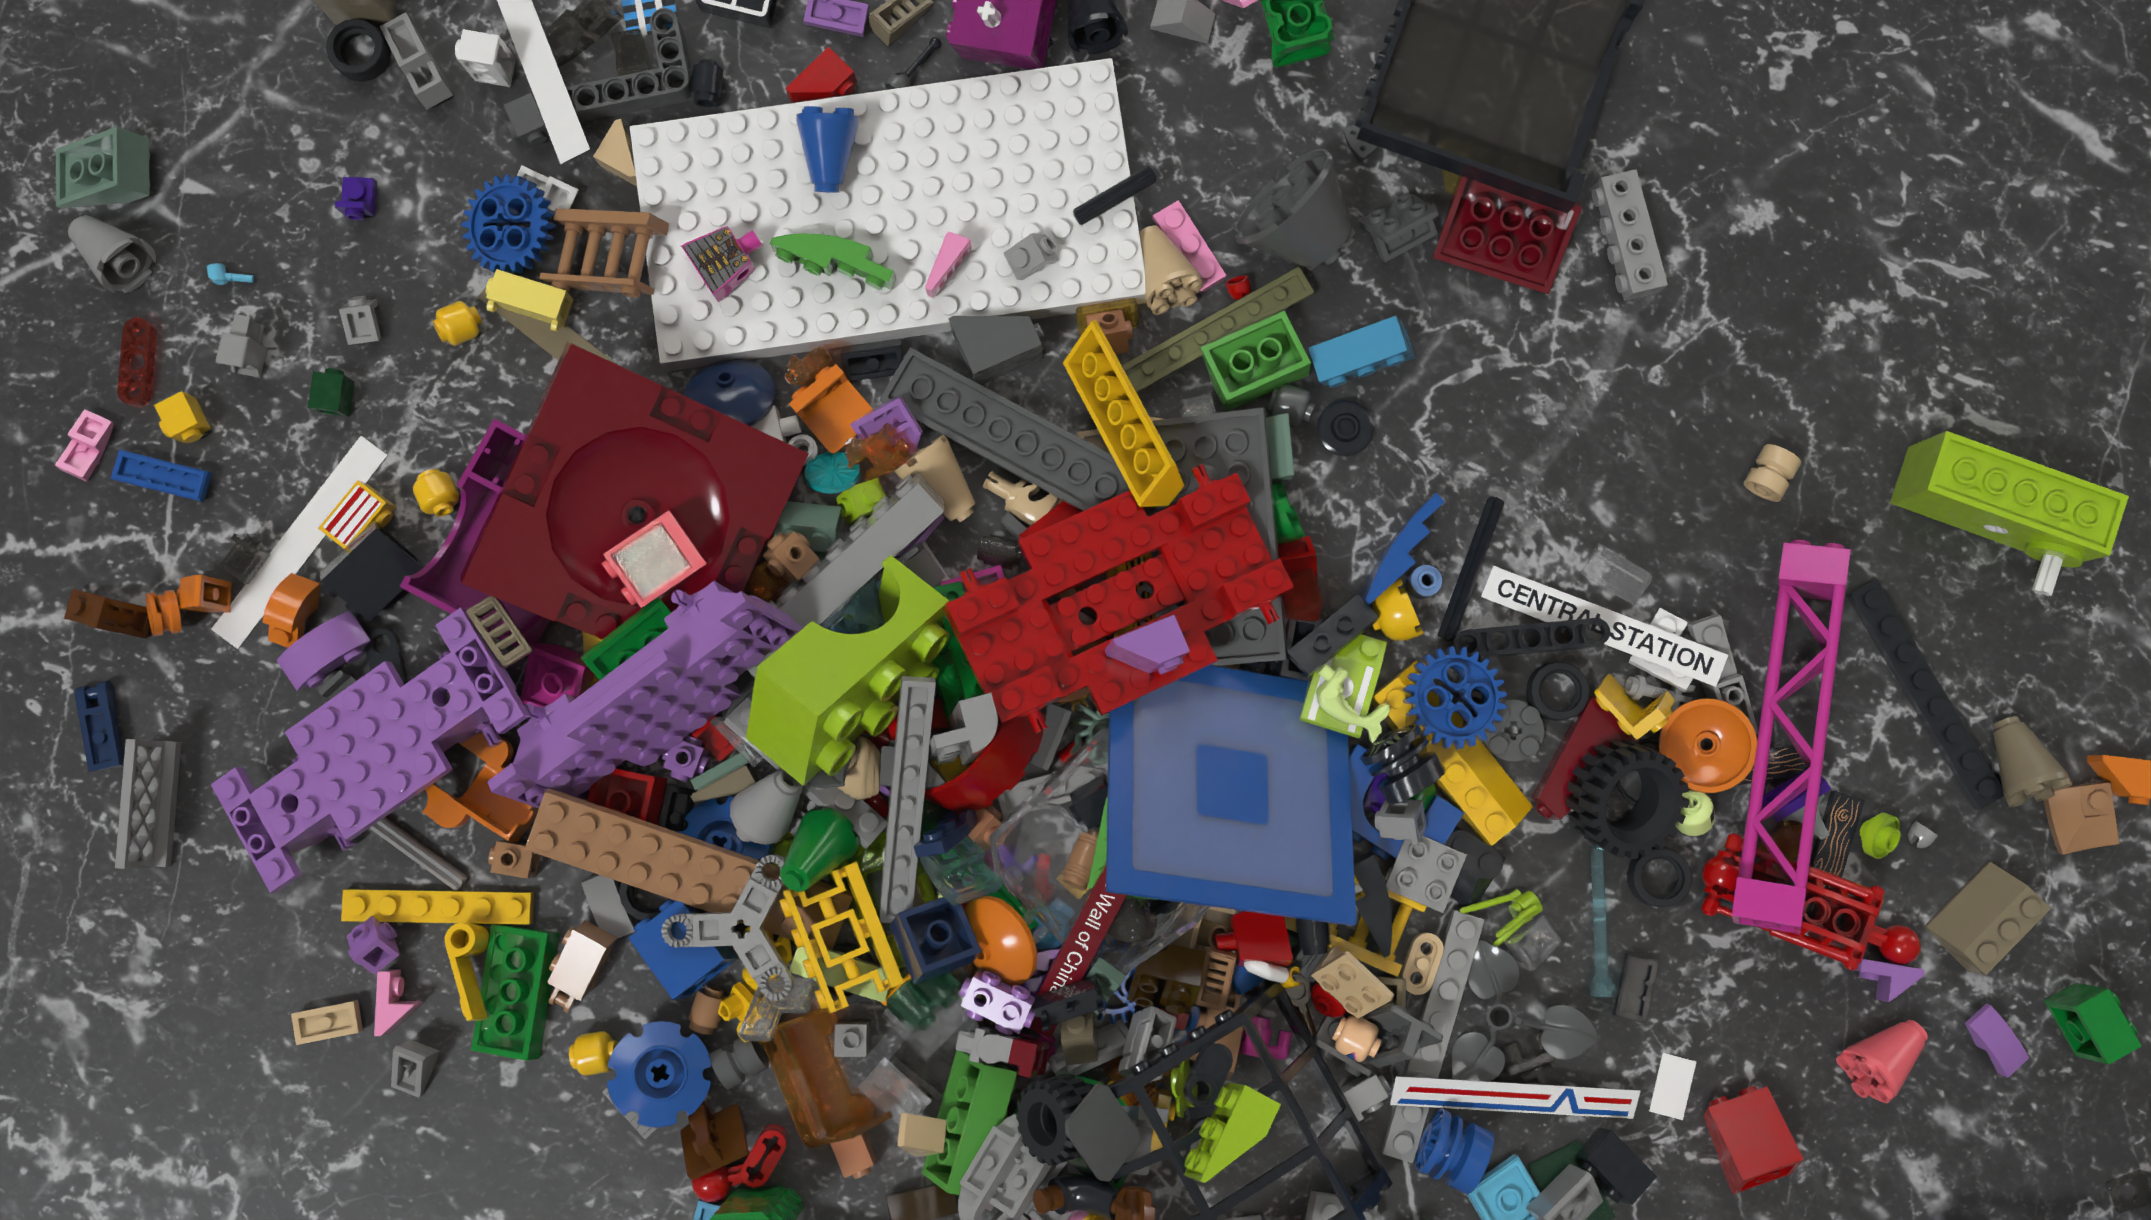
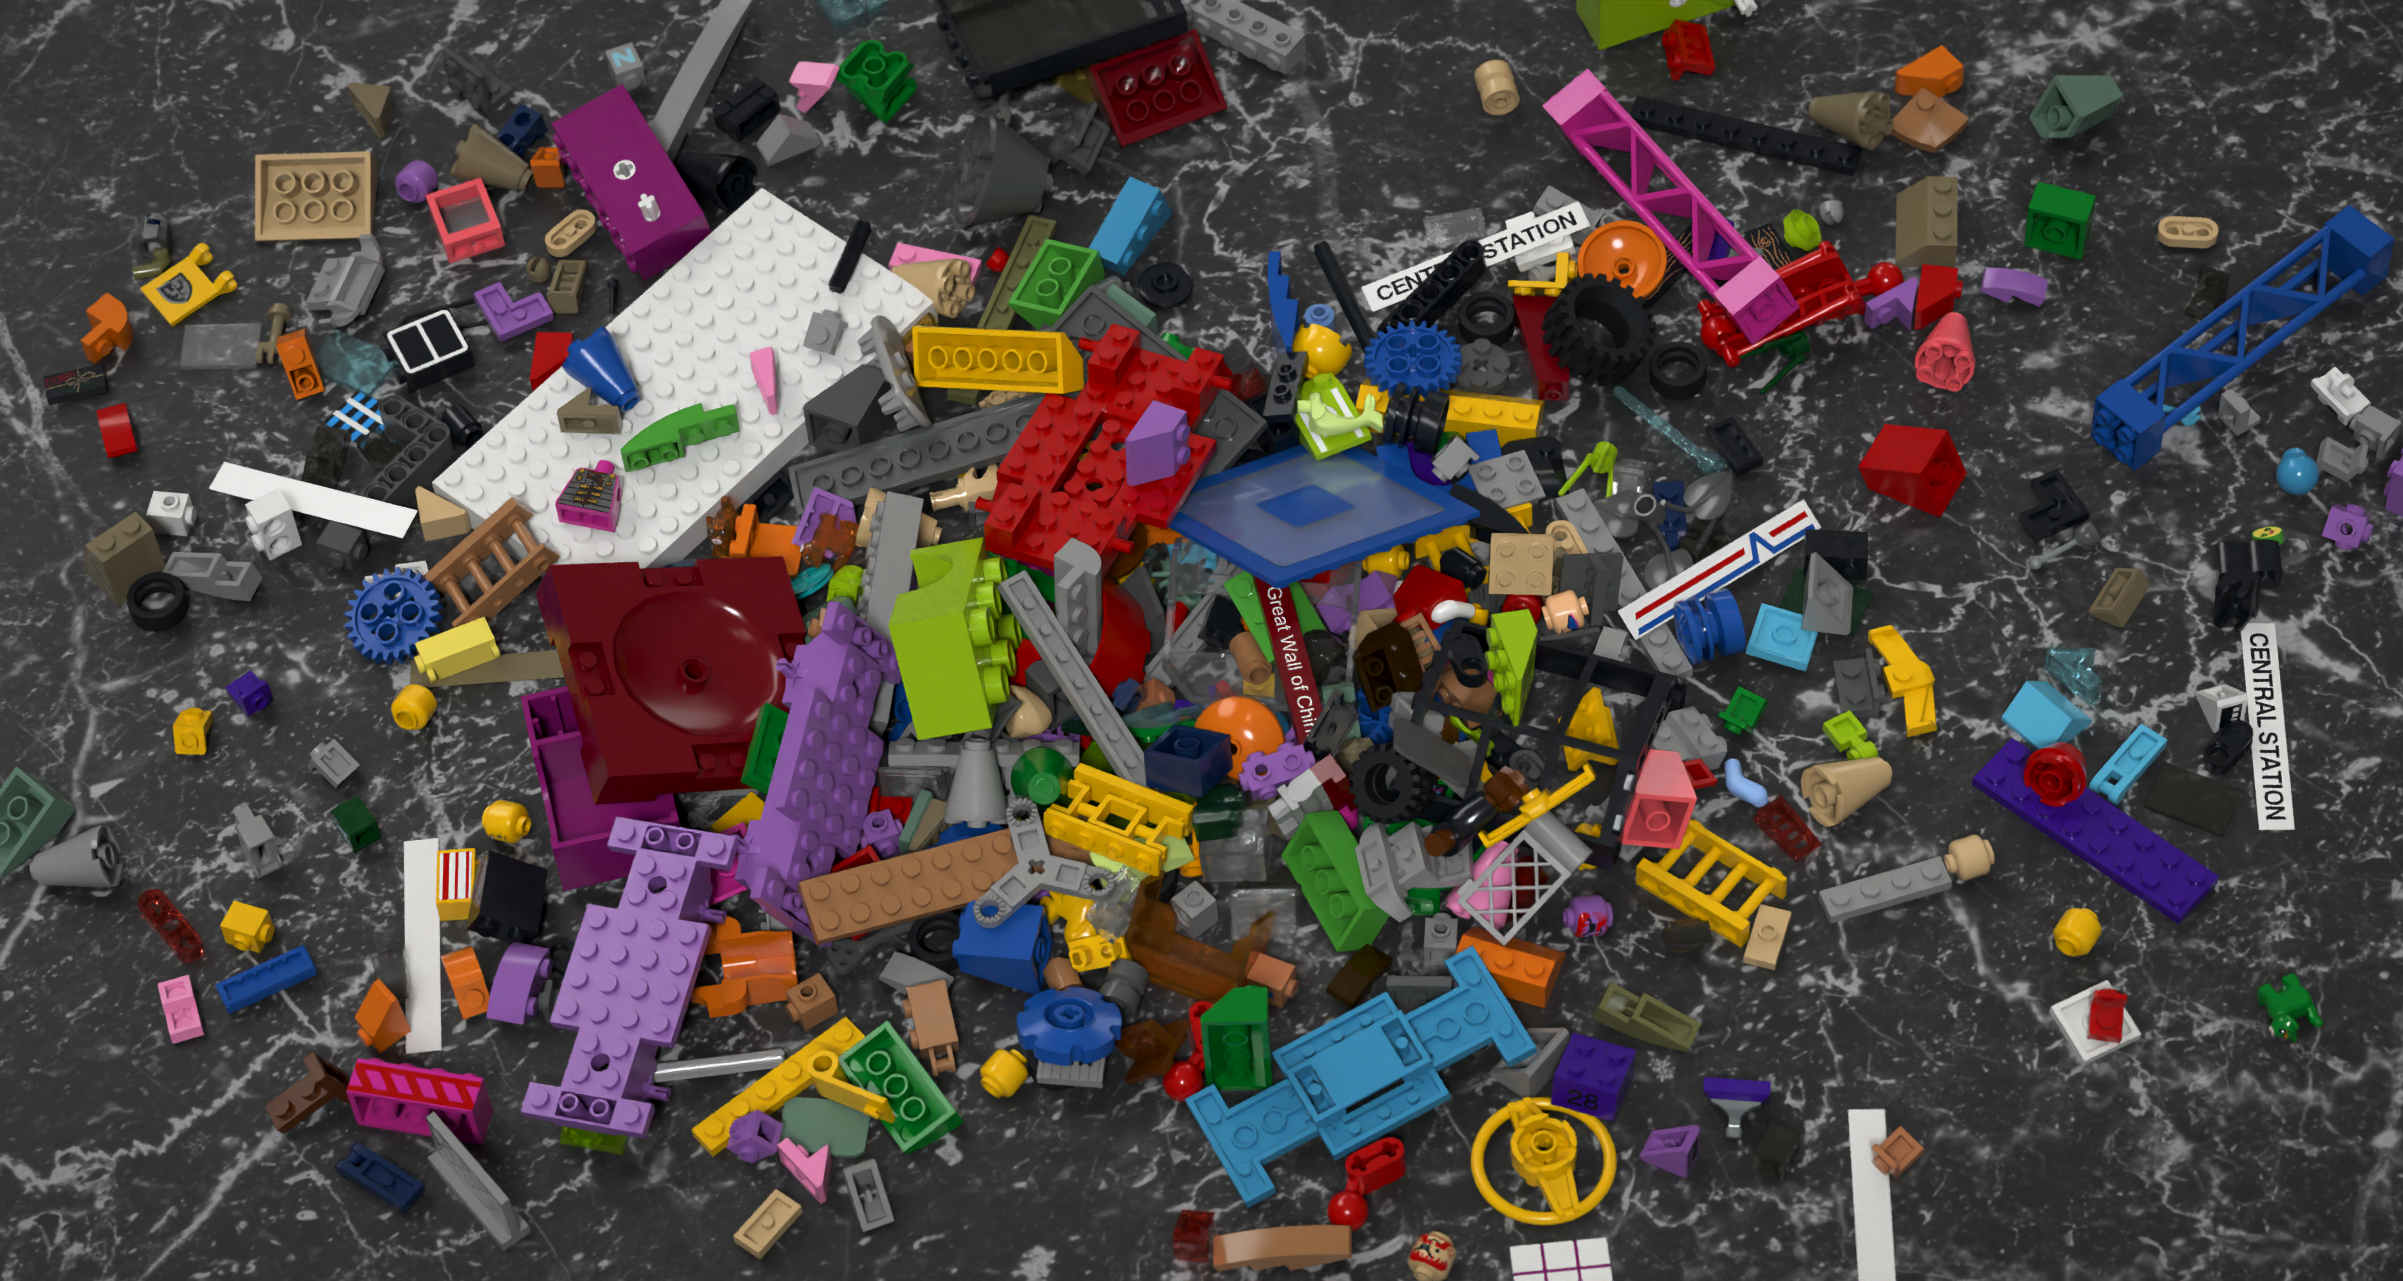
camera: 35 degrees left, 30 degrees down
(163, 612) = (361, 1044): orange wheel -> none
(165, 696) = (404, 1095): none -> dark pink brick
(218, 275) = (185, 822): medium azure hand -> none
(289, 194) = (191, 731): none -> yellow bracket
(429, 970) = (824, 1122): none -> sand green piece
(485, 607) = (644, 800): dark tan slope -> none
(651, 561) = (735, 681): window -> none
(782, 170) = (584, 416): none -> dark tan slope
(921, 1134) = (1312, 915): tan slope -> none
(1047, 349) = (892, 359): none -> light grey piece
(1281, 1143) = (1593, 724): none -> yellow bracket
(1532, 999) = (1674, 525): none -> dark blue hinge
(1672, 1086) = (1827, 487): white sticker -> none
(1699, 814) = (1664, 310): yellowish green head -> none
(1761, 937) = (1790, 346): none -> dark green plant
(1933, 992) = (1936, 293): none -> red slope
(1959, 570) = (1687, 49): none -> red bracket

